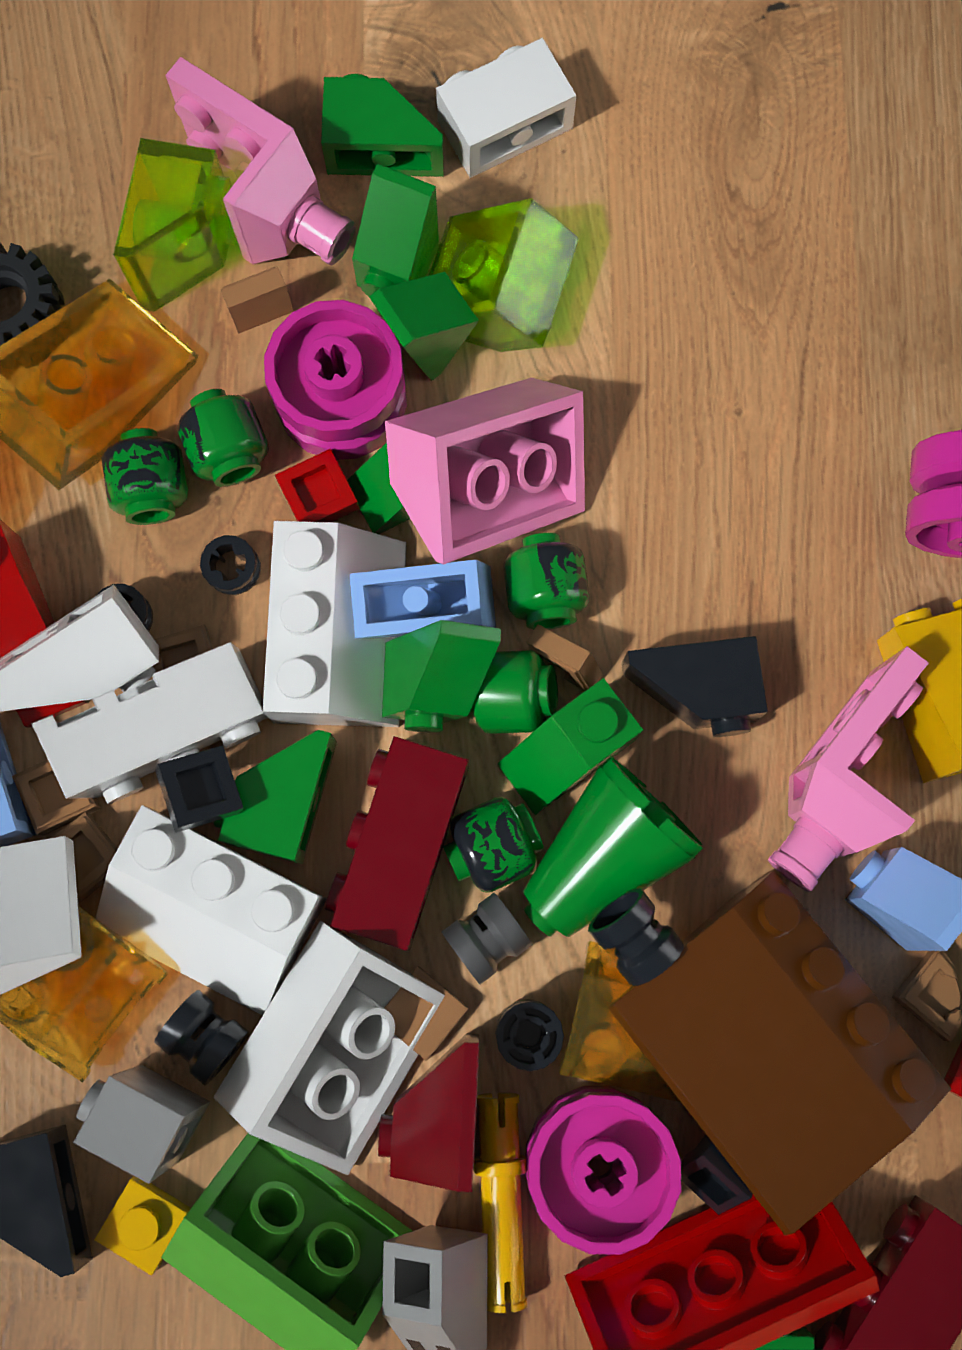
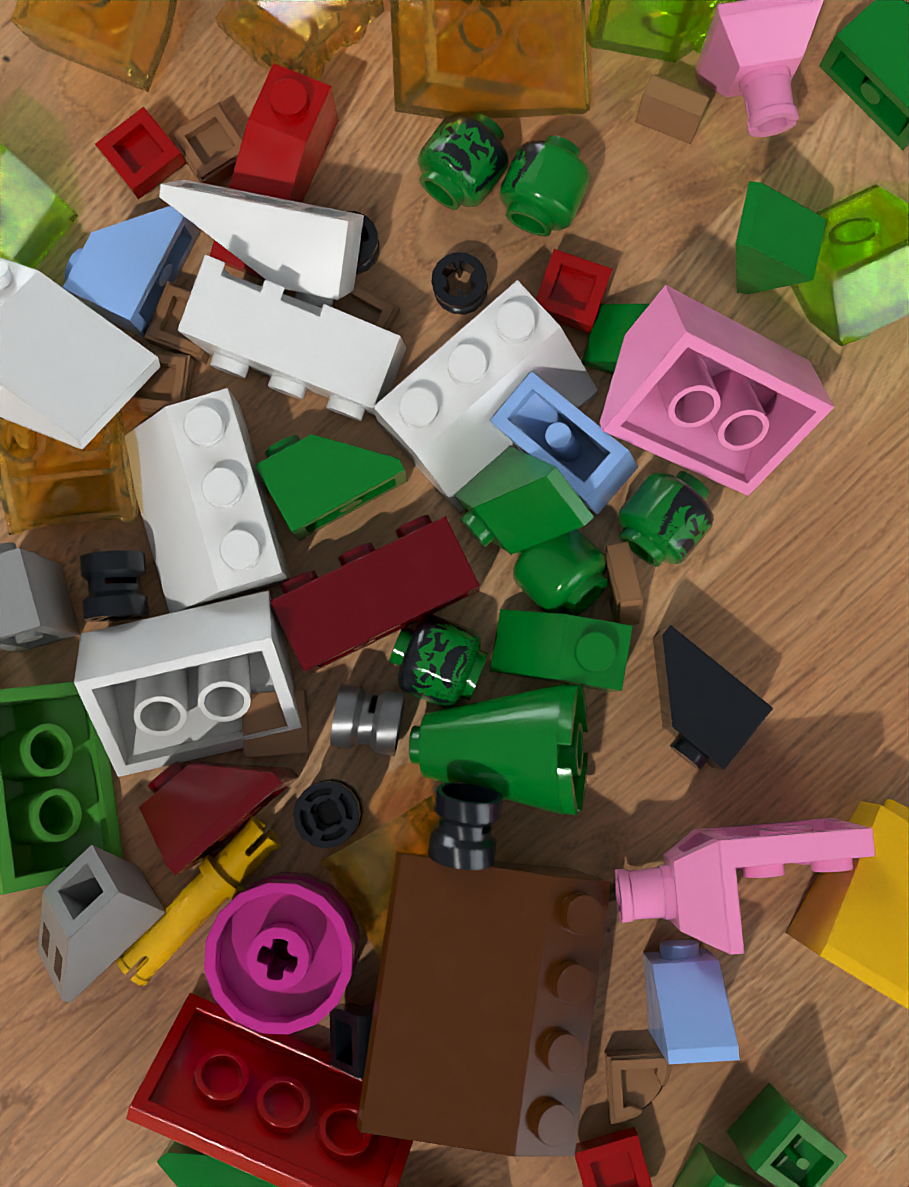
camera: 50 degrees right, 5 degrees up
(199, 789) = (275, 416): black tile -> none
(335, 378) = (668, 220): dark pink wheel -> none
(395, 231) = (823, 154): green slope -> none

